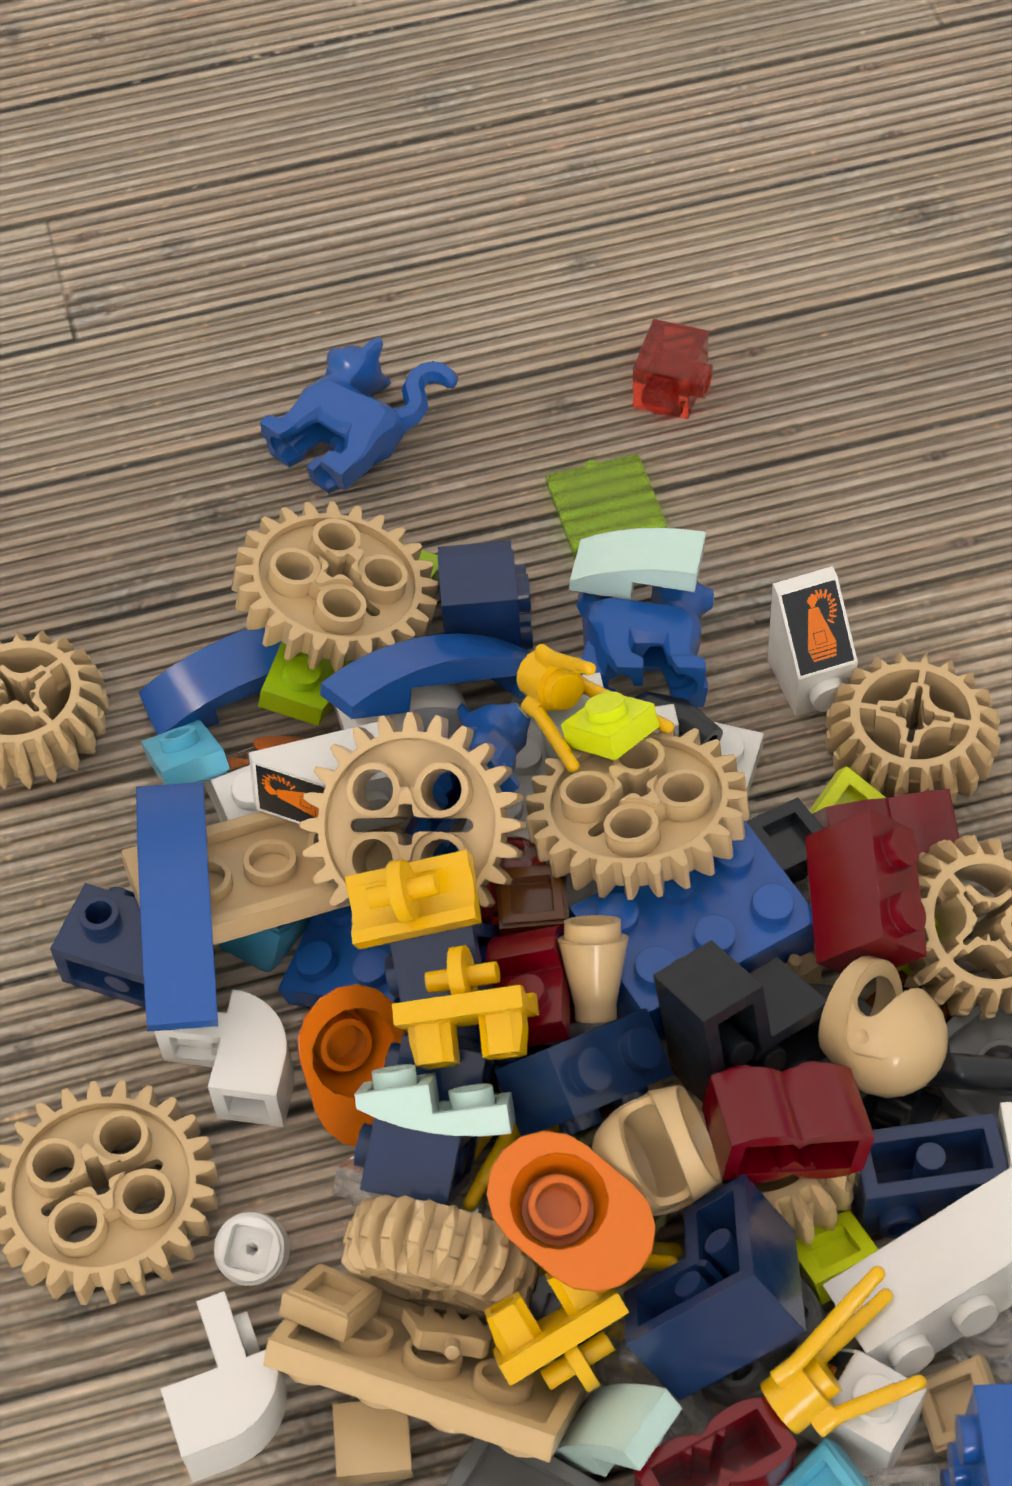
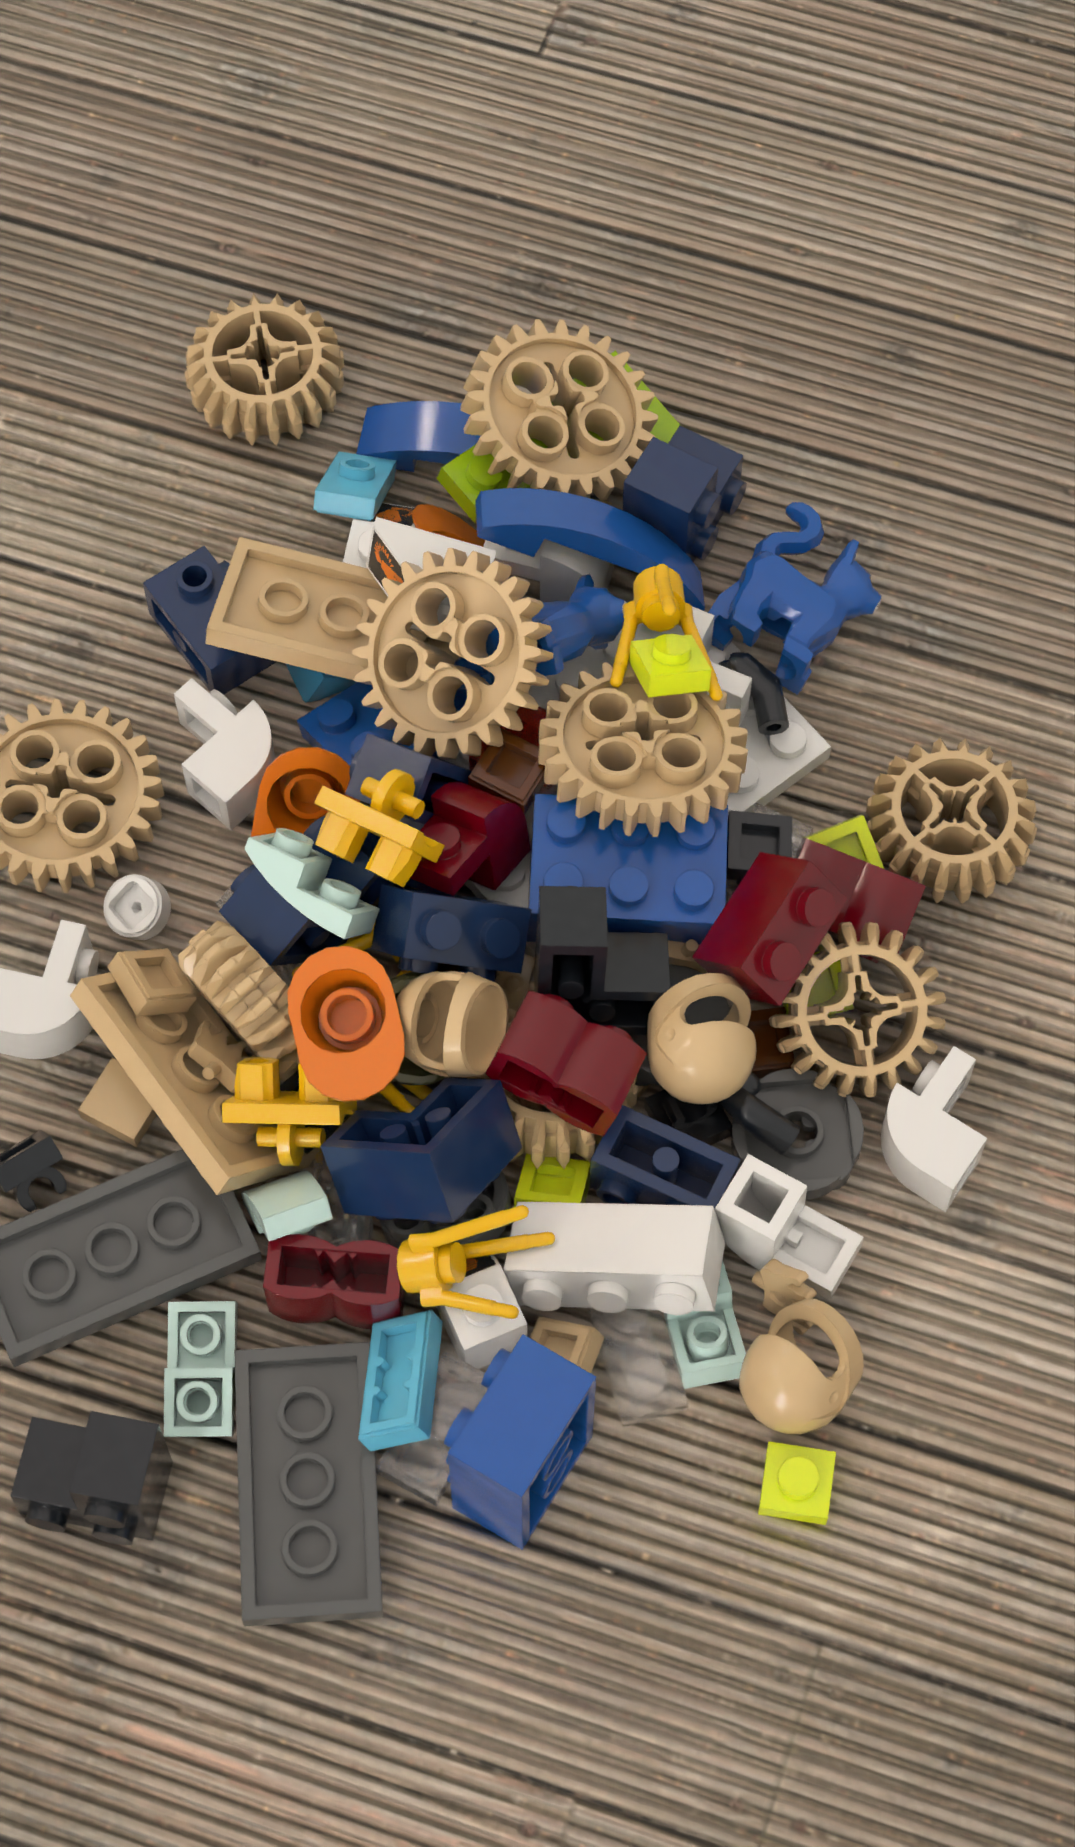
camera: 30 degrees right, 10 degrees up
(175, 907) = (242, 604): blue slope -> none
(349, 420) = (702, 270): blue animal -> none
(413, 899) = (402, 715): yellow hips -> none
(593, 963) = (513, 849): tan cone -> none
(604, 499) = (864, 469): clear neon green piece -> none
(650, 556) = (826, 535): light aqua slope -> none
(672, 369) = (1008, 377): clear red brick -> none
(810, 640) = (921, 691): slope -> none

